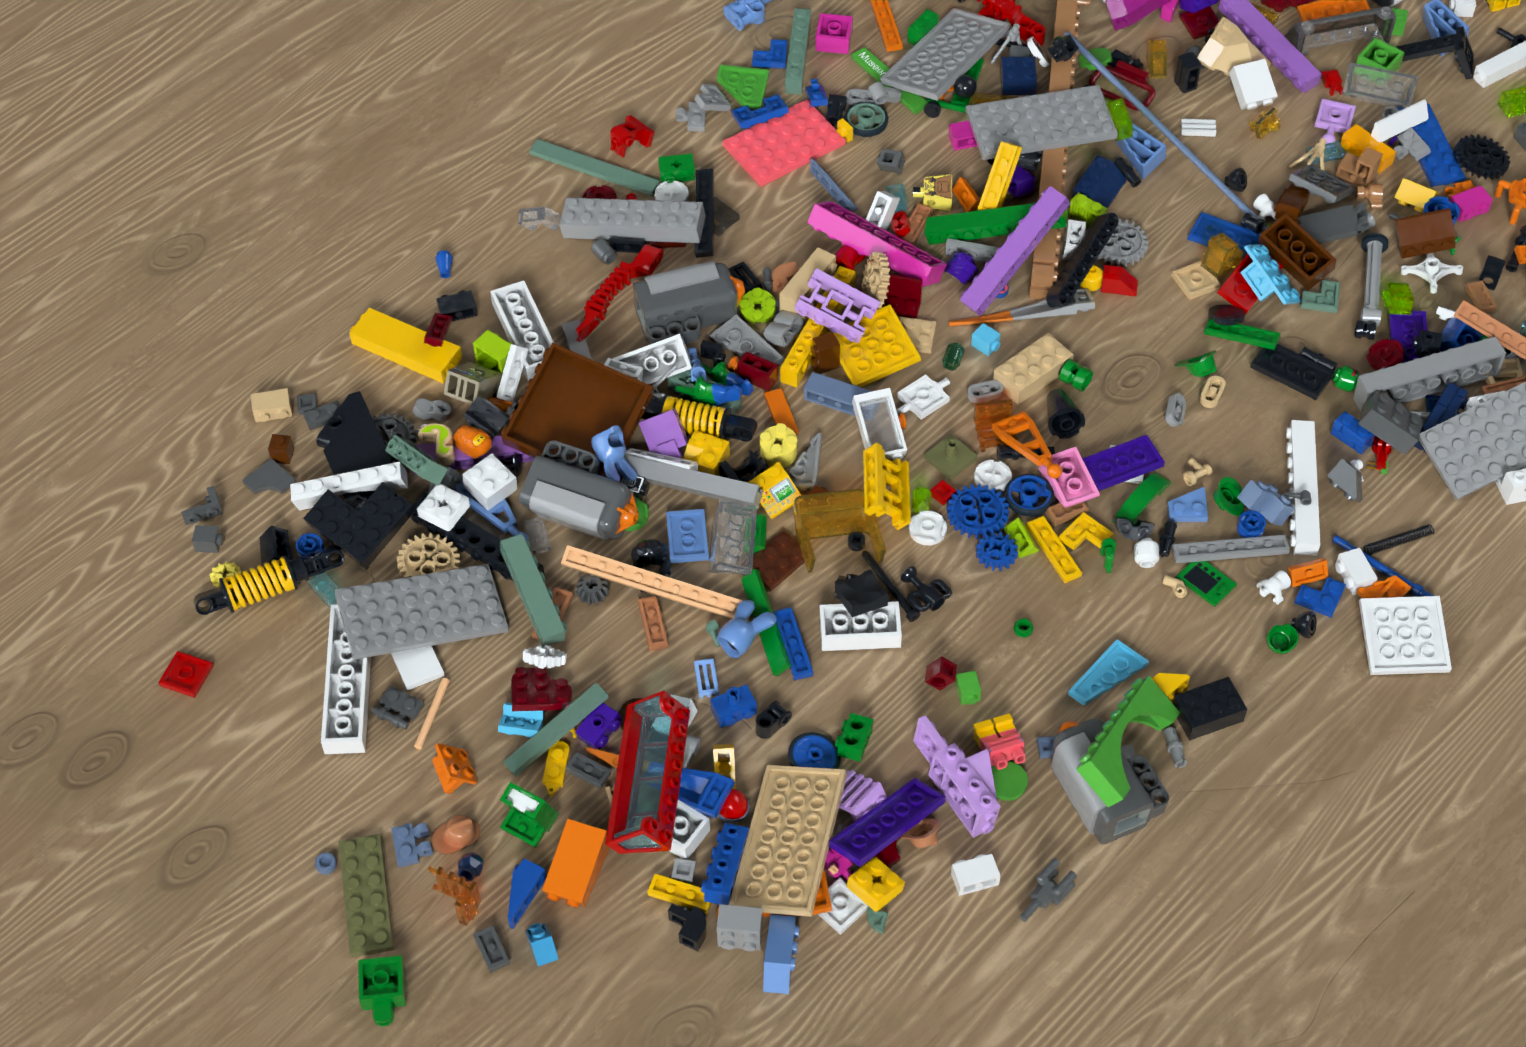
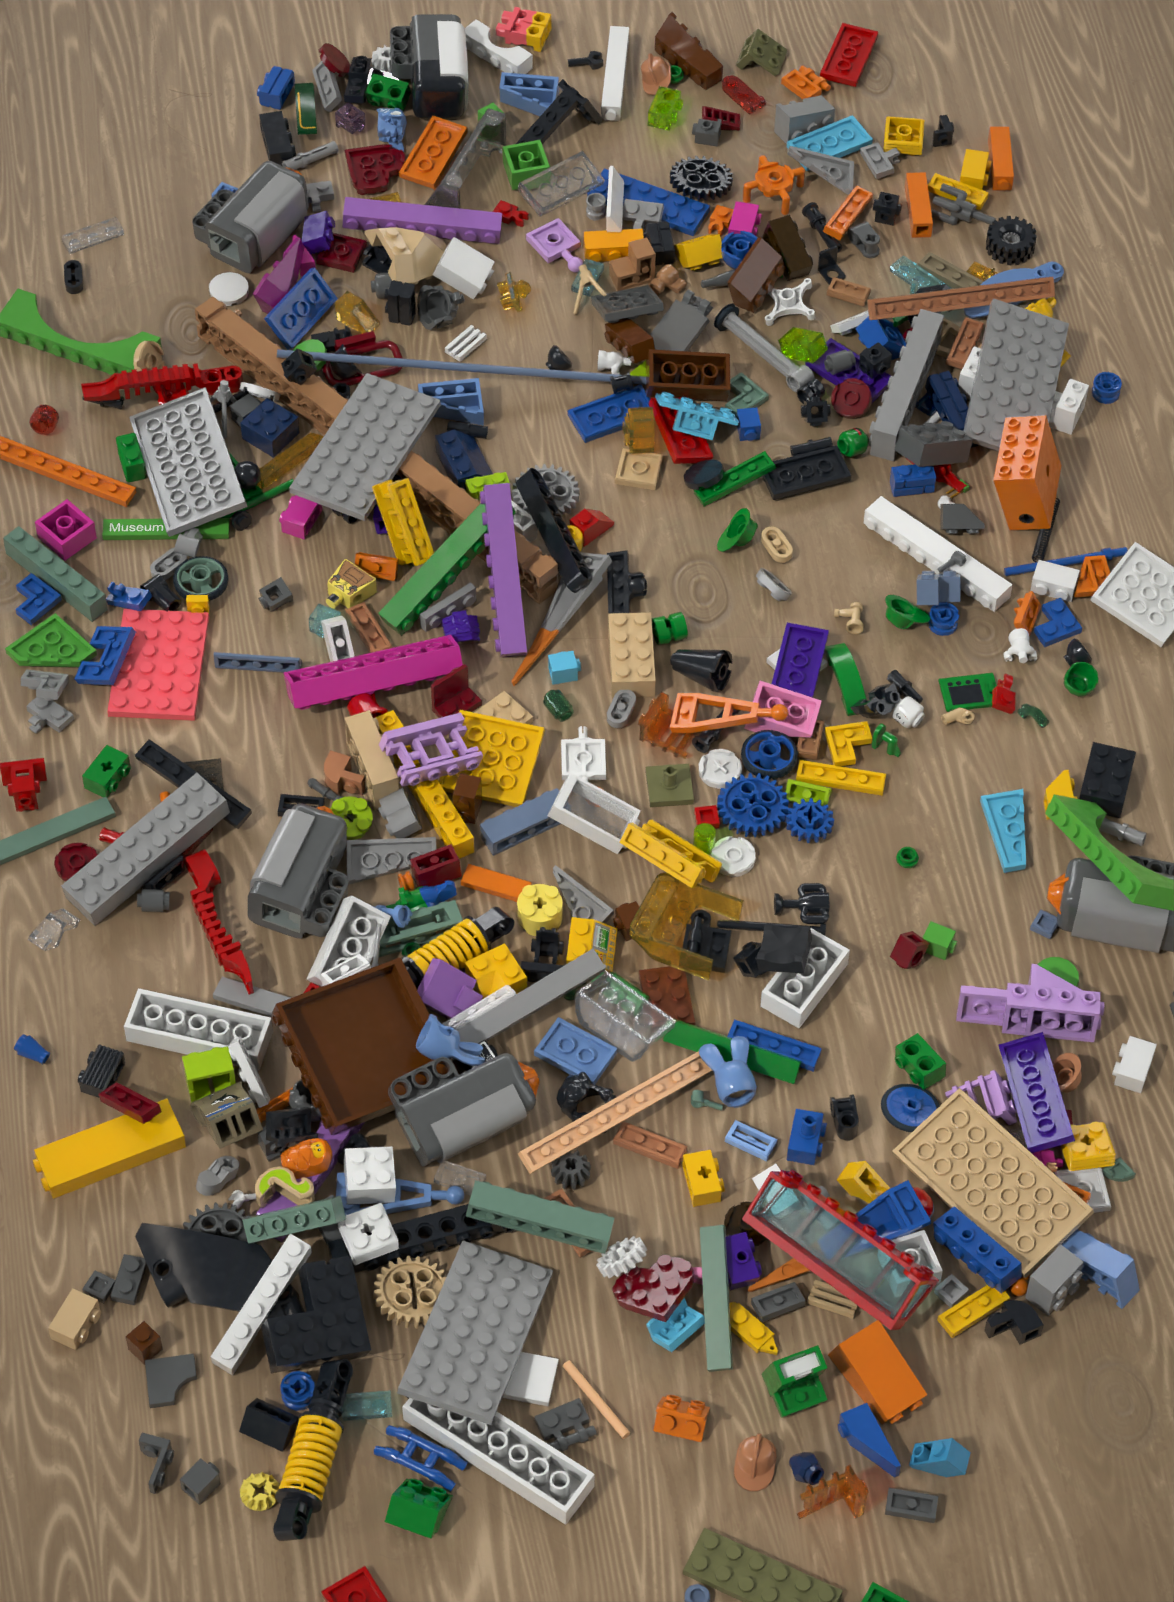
camera: 55 degrees left, 0 degrees up
(273, 663) = (418, 1507): none -> green slope
(304, 650) = (424, 1469): none -> blue piece
(405, 844) = (733, 1512): sand blue plate -> none
(649, 666) = (695, 1168): none -> yellow brick
(671, 192) = (133, 799): white tile -> none
(712, 351) = (375, 888): black bracket -> none
(712, 392) = (435, 918): animal -> none
(836, 556) = (708, 942): none -> black plate
(876, 277) = (423, 697): tan gear -> none
(901, 224) = (364, 634): red beam -> none
(1000, 740) = (1015, 953): coral hips -> none
(1087, 329) = (622, 584): none -> black plate
(1102, 81) = (342, 369): none -> black helmet
(1120, 118) = (420, 383): clear neon green brick -> none
(1126, 28) = (300, 308): none -> blue plate
(1189, 507) = (884, 649): medium blue wing -> none
(1209, 93) = (437, 306): none -> dark grey helmet
(1220, 603) = (1002, 697): none -> red plate
(1226, 628) = (1035, 712): none -> clear green arm
(1230, 549) = (953, 651): light grey tile -> none
(1298, 312) = (749, 424): none -> blue brick
(1344, 341) = (822, 413): none -> black brick
(1398, 168) = (661, 242): none -> black brick
(1405, 326) = (839, 362): none -> dark grey brick
(1421, 488) = (1027, 473): none -> orange gear
(1475, 238) = (785, 240): none -> dark brown wedge

